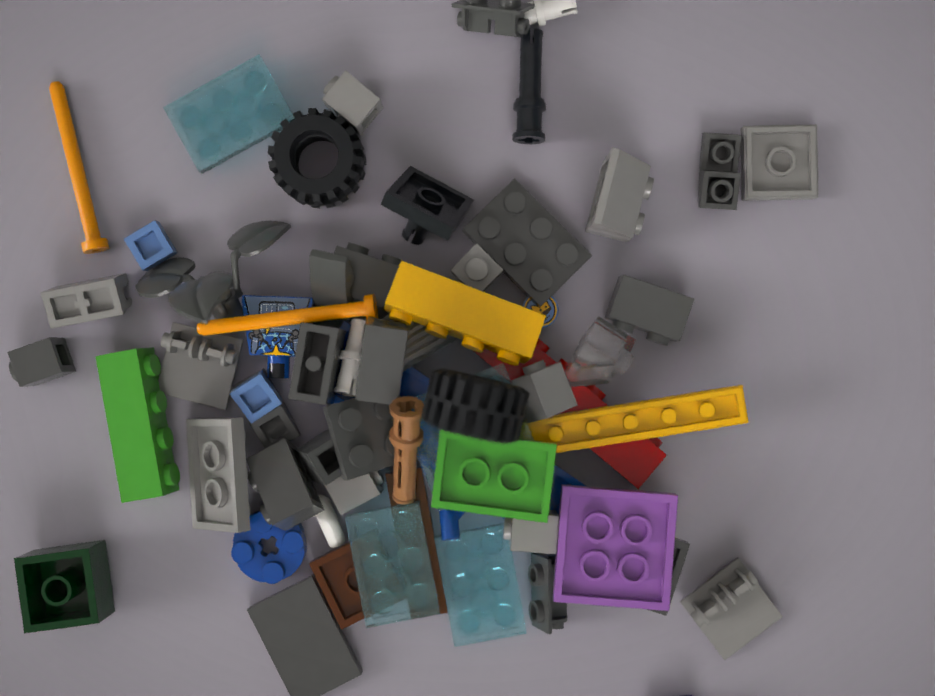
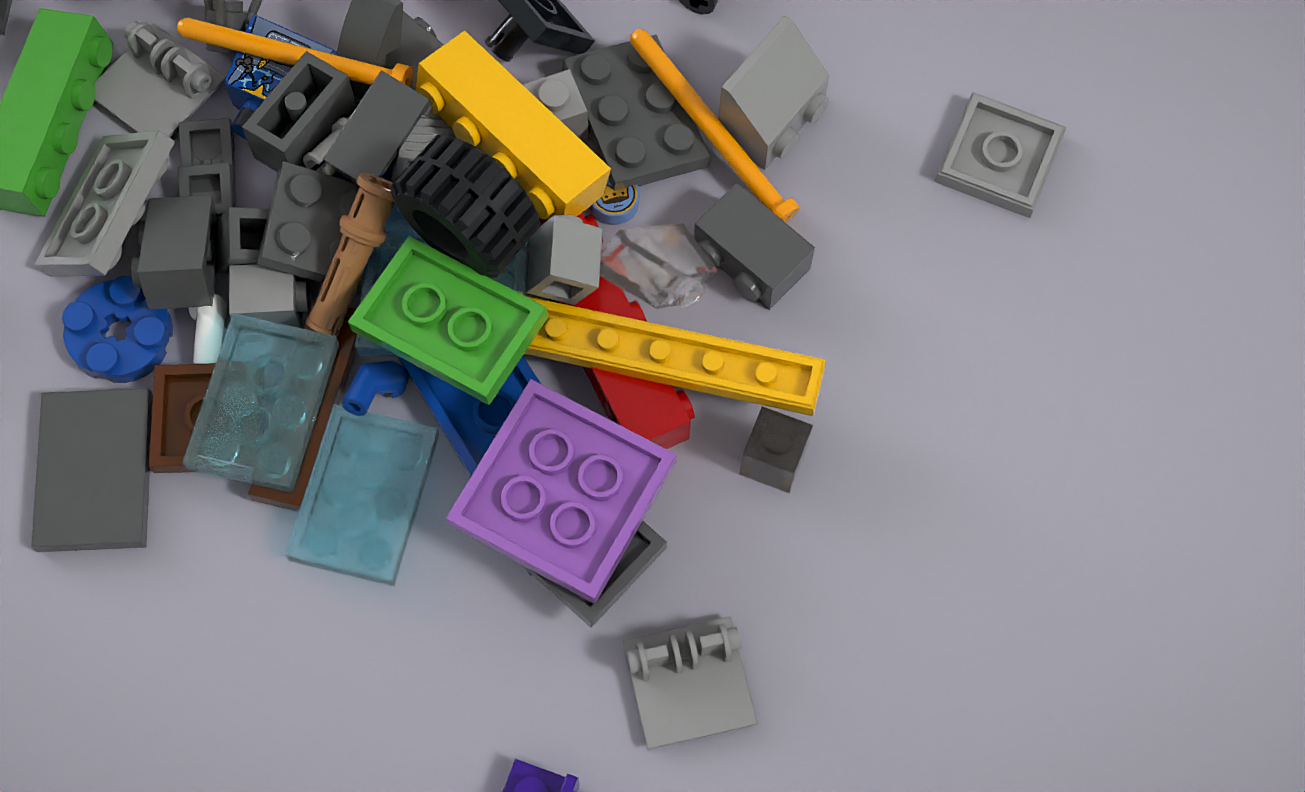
camera: 25 degrees right, 20 degrees down
(256, 397) = (204, 136): medium blue plate -> none
(532, 535) = (460, 431): light grey brick -> none
(542, 609) = (437, 562): dark grey hinge -> none
(653, 272) = (711, 126): none -> light orange bar
(719, 171) = (919, 130): dark grey slope -> none
(725, 445) = (775, 449): none -> clear smoke brick

